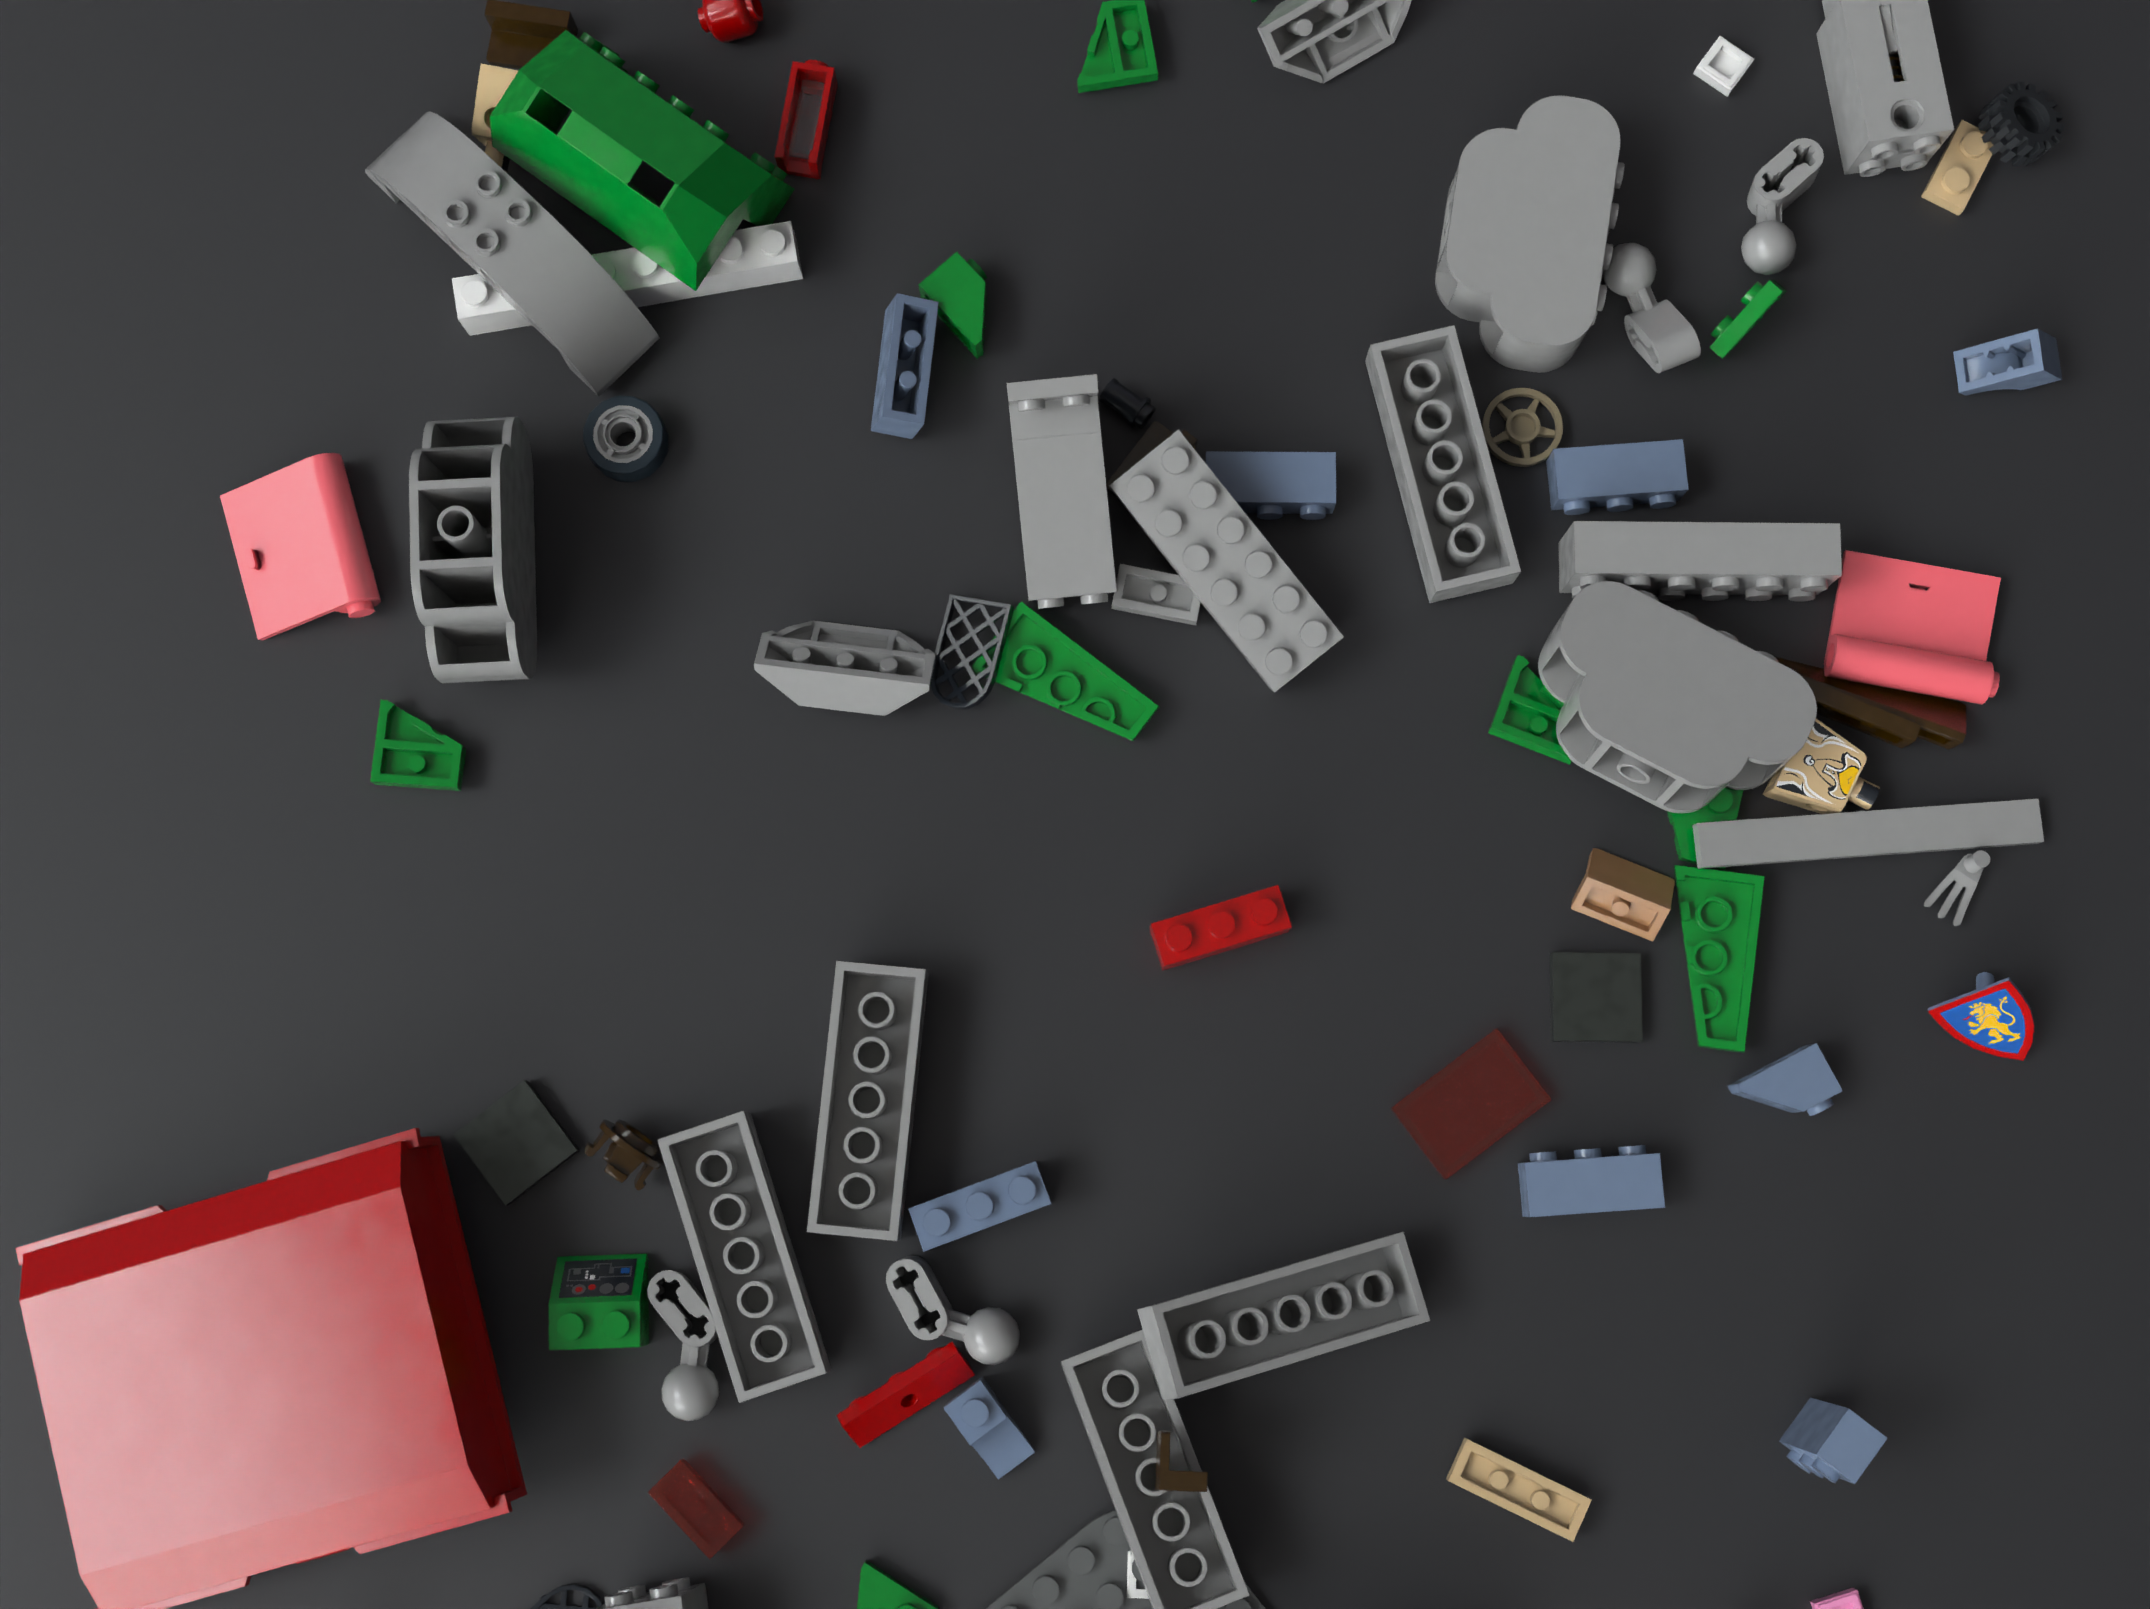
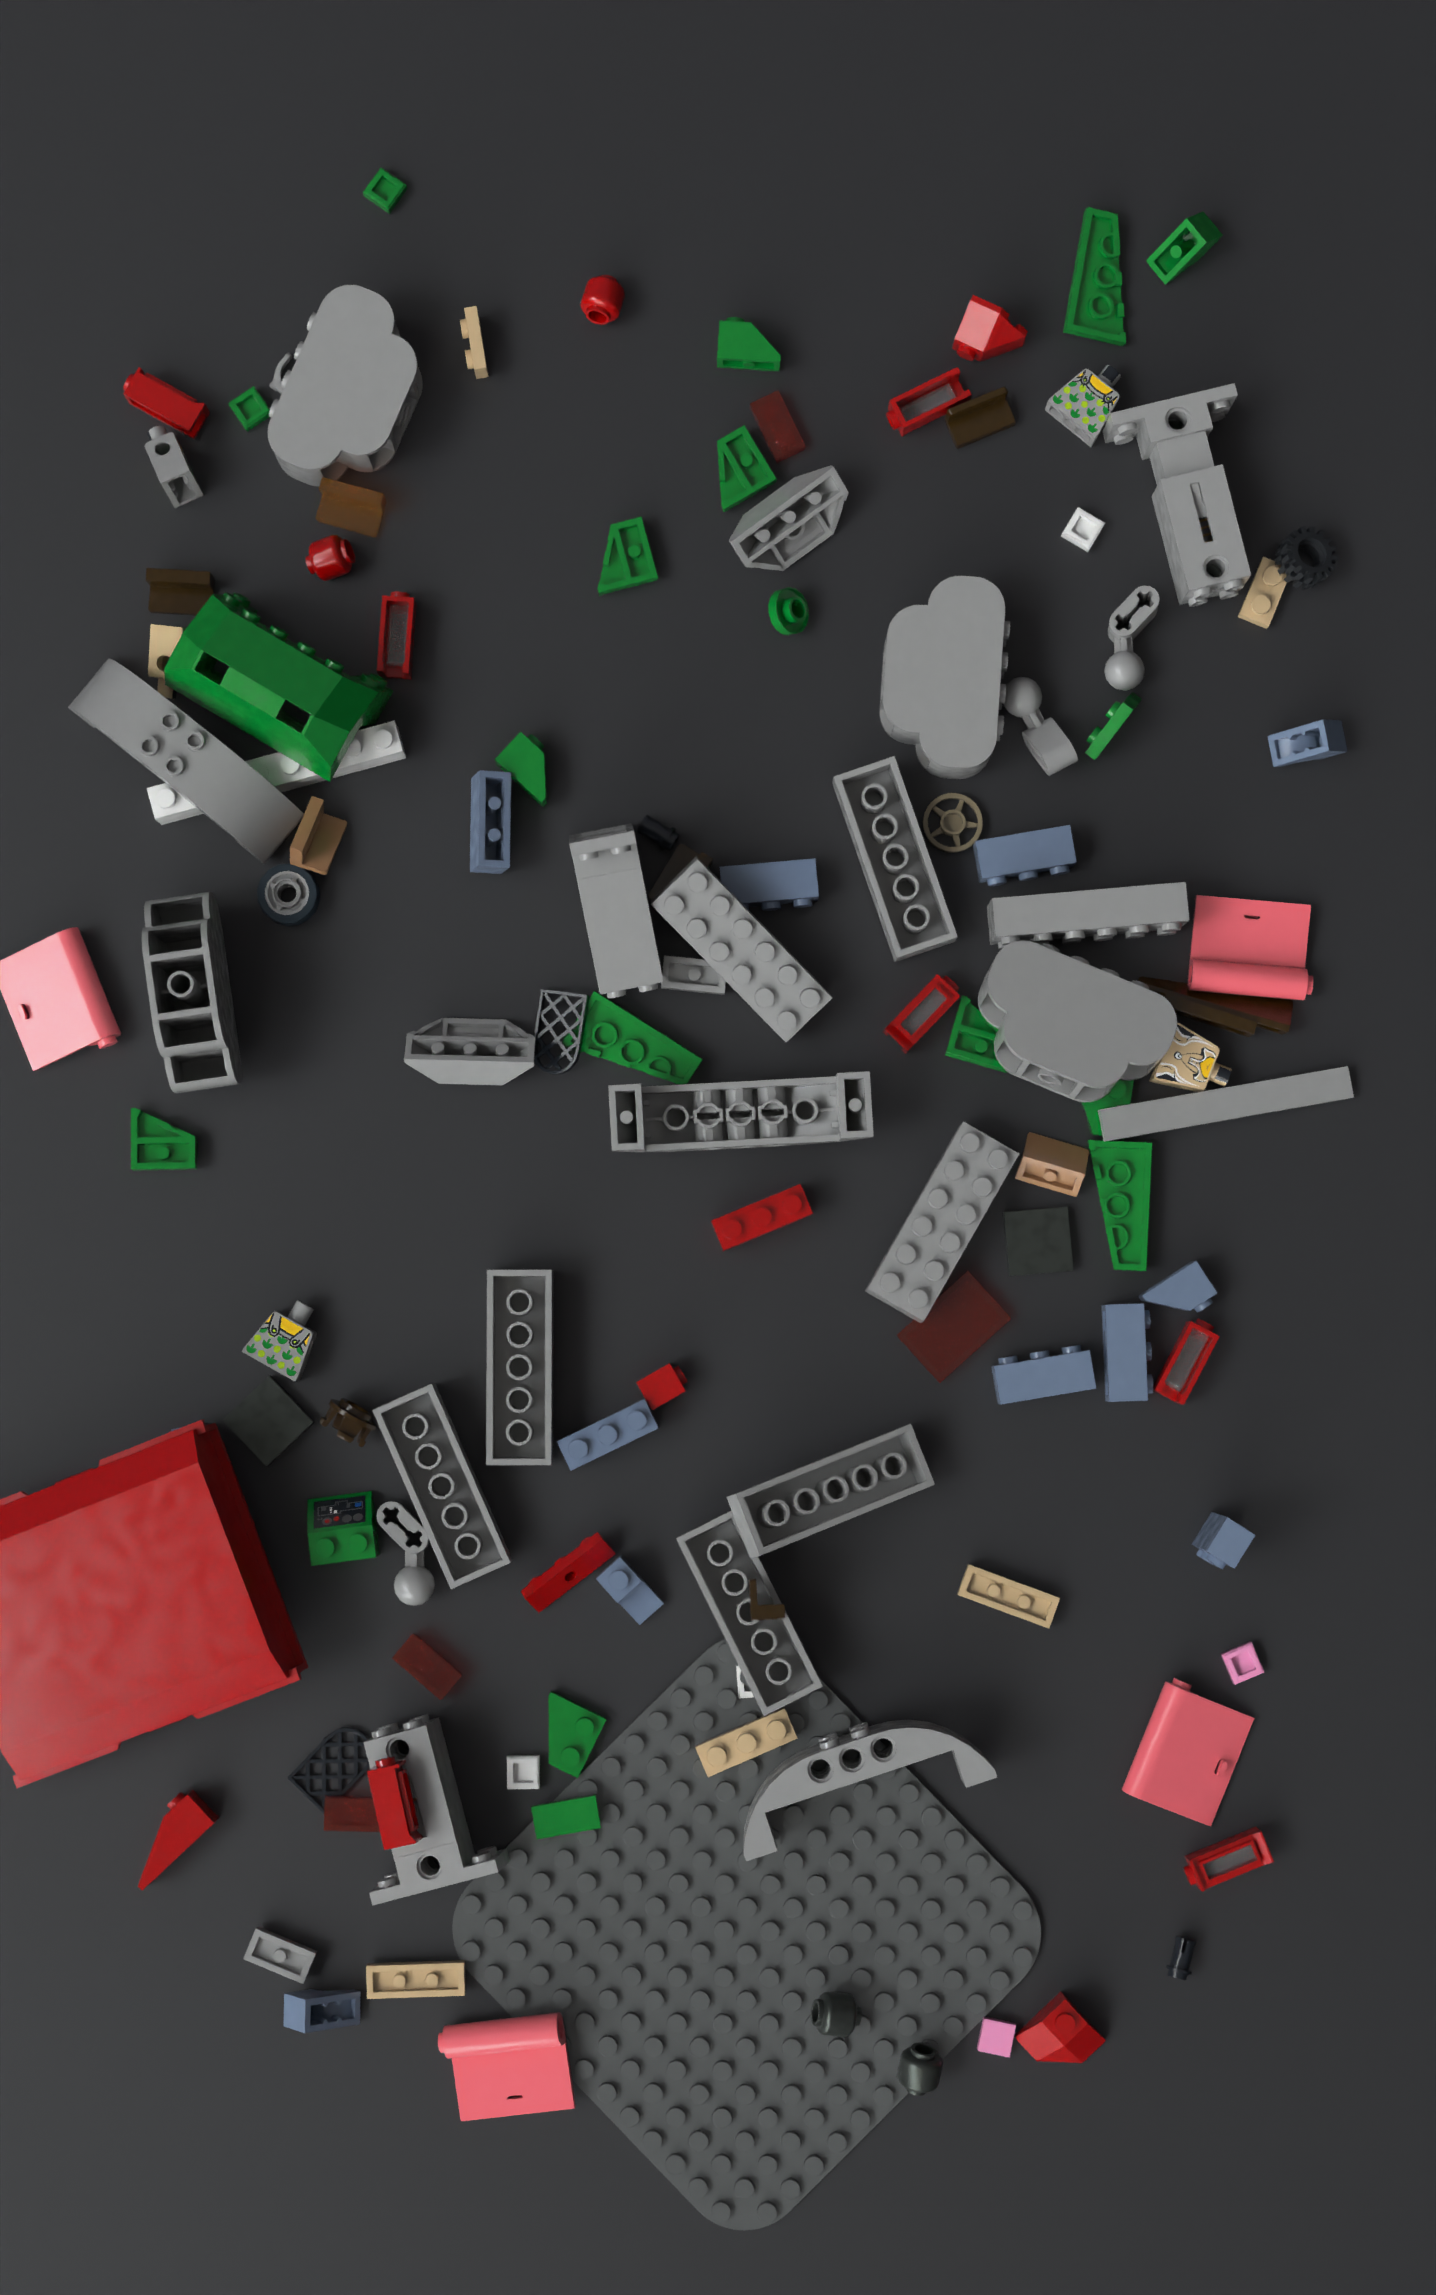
camera: 10 degrees left, 5 degrees up
(550, 1035) = (284, 1341): none -> light grey torso
(670, 367) = (316, 838): none -> medium nougat panel
(988, 1334) = (622, 1524): light grey beam -> none
(1062, 1145) = (662, 1385): none -> red brick
(1206, 782) = (741, 1113): none -> light grey slope
(1326, 132) = (788, 611): none -> green plate
(1463, 671) = (923, 1012): none -> red window
(1467, 958) = (942, 1222): none -> light grey brick
(1708, 1161) = (1126, 1352): none -> sand blue brick
(1791, 1183) = (1186, 1361): none -> red window
(1965, 875) = (1299, 1127): light grey piece -> none
(1989, 1018) = (1320, 1230): shield -> none

